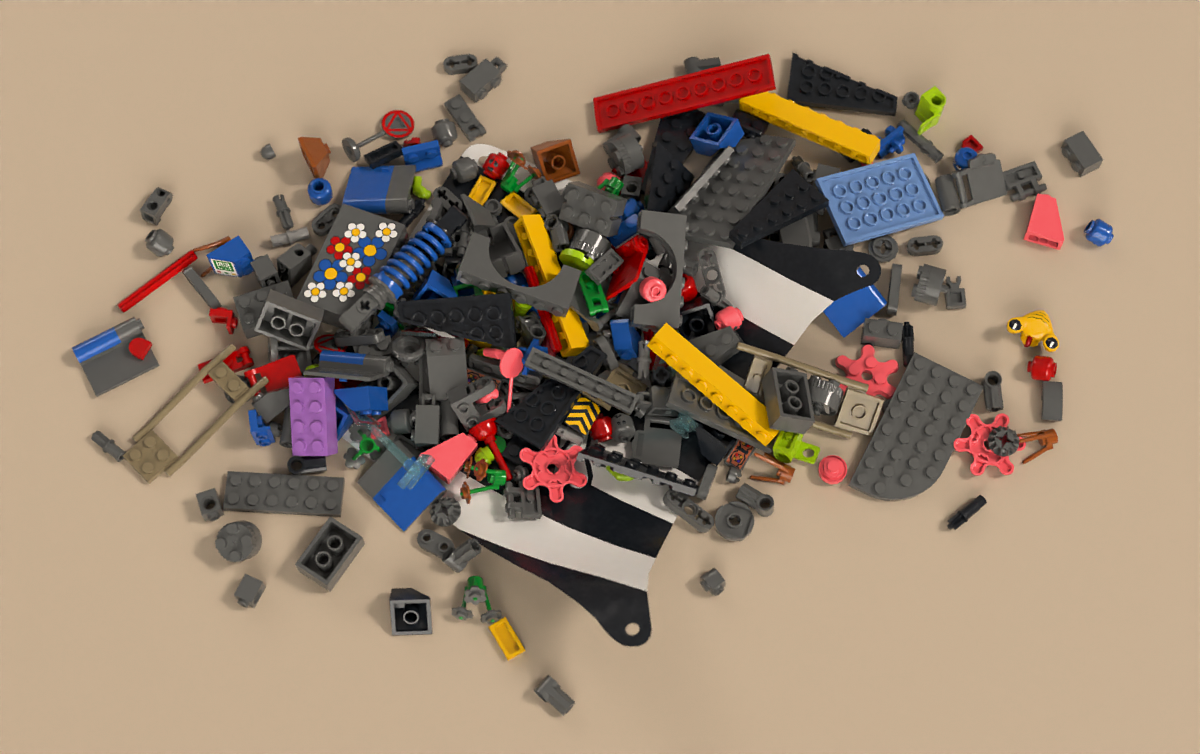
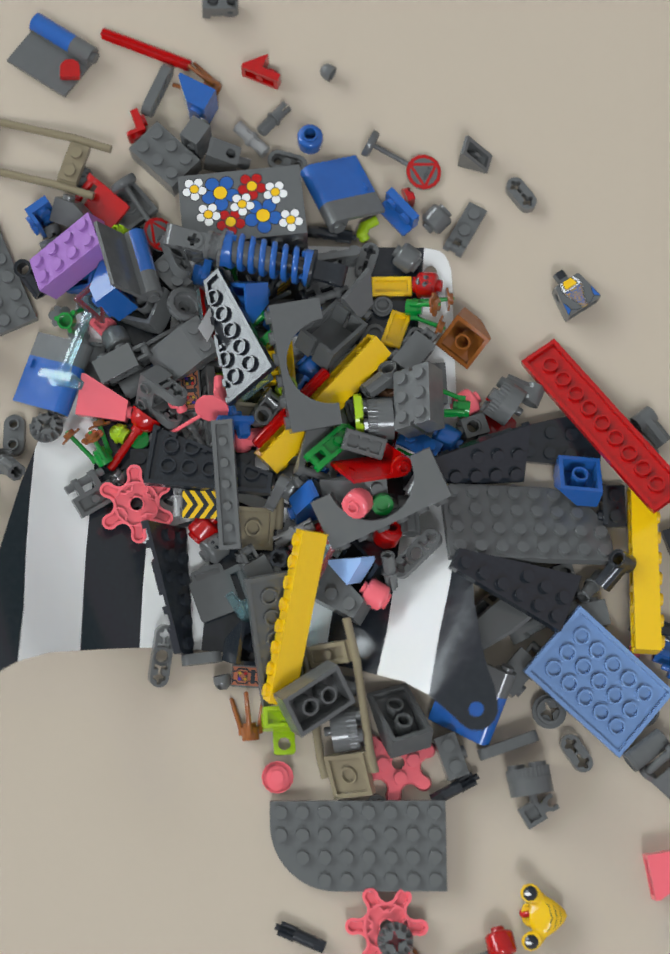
camera: 60 degrees right, 10 degrees up
(159, 242) = (181, 28): dark grey head -> none
(231, 362) = (98, 158): red plate -> none
(234, 204) = (257, 71): none -> red slope
(289, 320) = (152, 181): dark grey brick -> none
(315, 155) = (342, 115): dark orange slope -> none
(383, 154) = (382, 176): black plate -> none
(408, 81) = (474, 156): none -> dark grey slope
(483, 79) = (516, 224): dark grey brick -> none
(565, 67) = (573, 294): none -> torso
(662, 272) = (382, 504): none -> green tile
(699, 324) = (352, 569): none -> light blue slope
(702, 181) = (512, 491): plate -> none
(713, 582) = (100, 716): dark grey plate -> none
(729, 511) = (168, 716): dark grey plate -> none
(754, 499) = (206, 714): dark grey piece -> none
(802, 144) = (619, 564): none -> black piece
(837, 353) = (400, 720): none -> dark grey slope
(993, 393) = (444, 905): dark grey piece -> none

